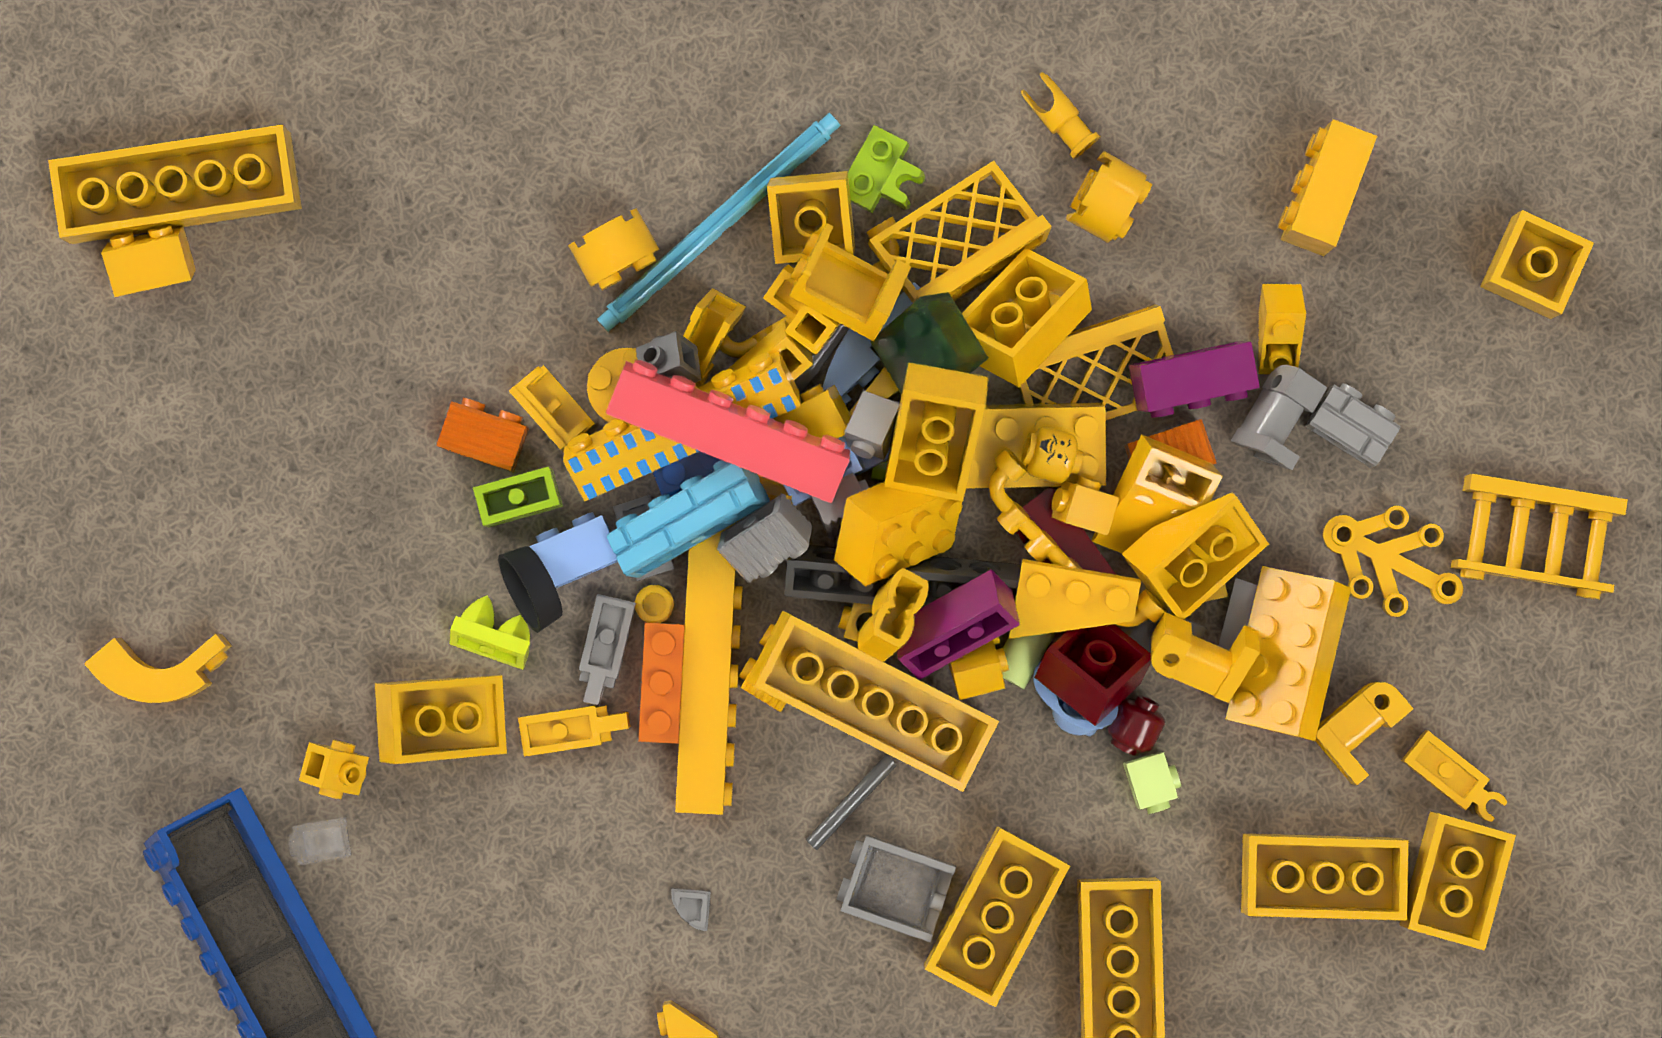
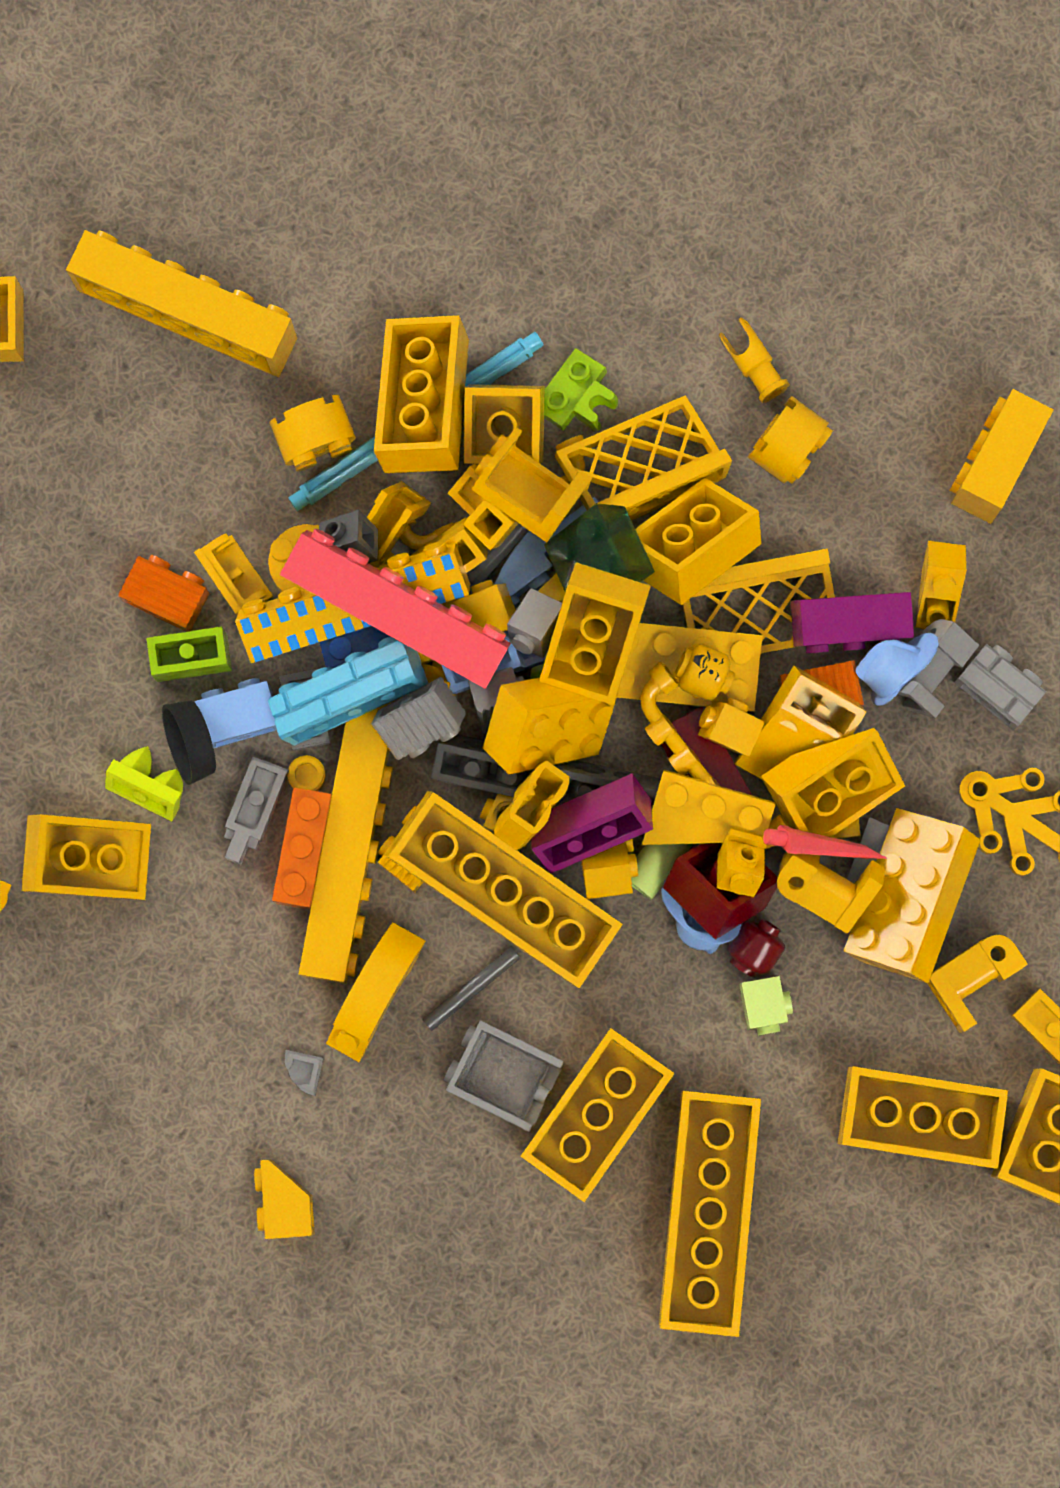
camera: 15 degrees right, 5 degrees down
(460, 129) = (182, 302): none -> yellow brick
(569, 729) = (208, 883): yellow hinge -> none
(722, 197) = (421, 394): none -> yellow brick
(755, 818) = (374, 991): none -> yellow arch
(1113, 647) = (741, 863): none -> yellow brick
(1175, 617) = (803, 842): none -> coral bar
(1245, 418) = (894, 664): none -> light blue piece

